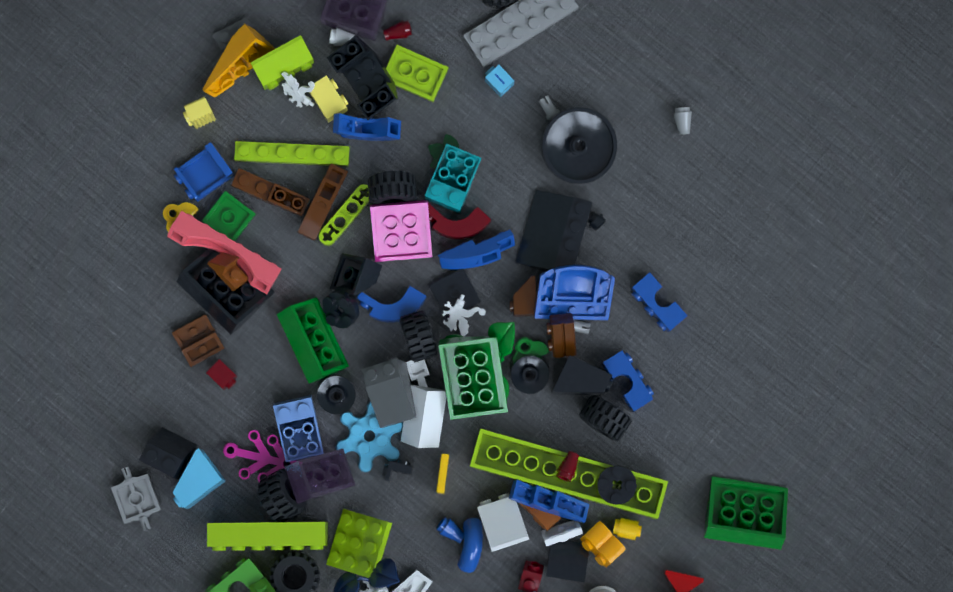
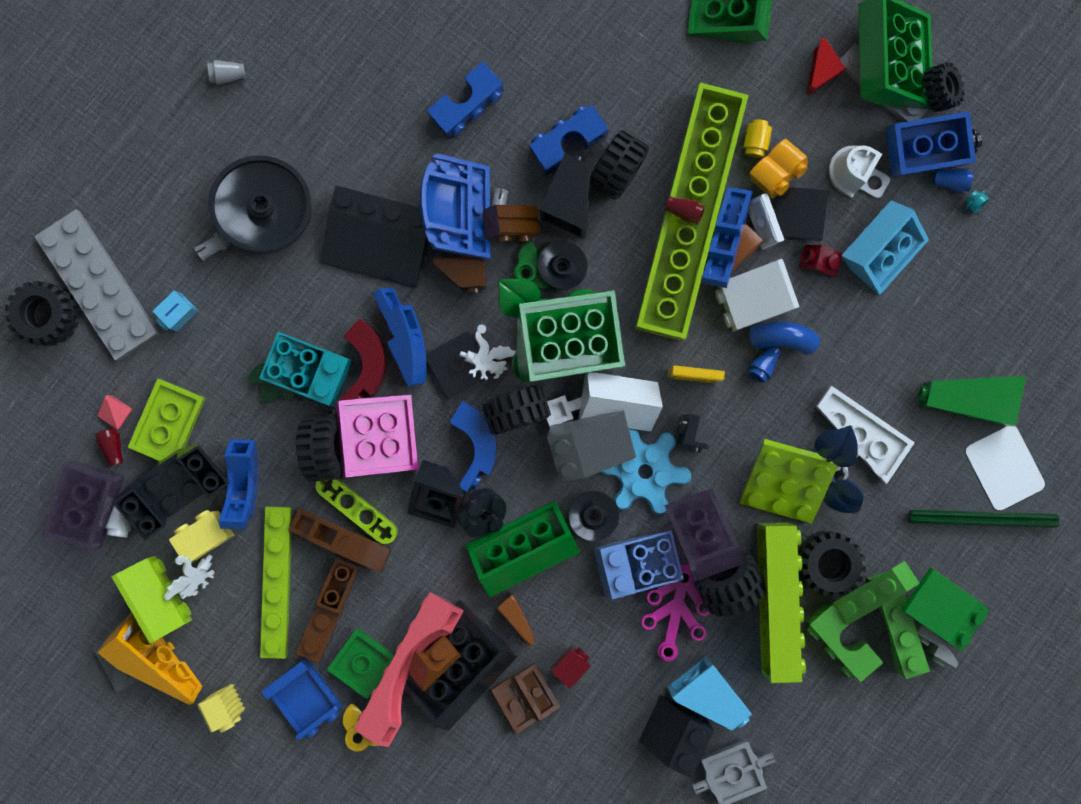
camera: 85 degrees left, 5 degrees up
(263, 332) = (514, 615): none -> dark orange slope
(424, 33) = (114, 411): none -> coral slope
(596, 221) = (360, 182): black plate -> none
(605, 485) = (709, 132): black plate -> none

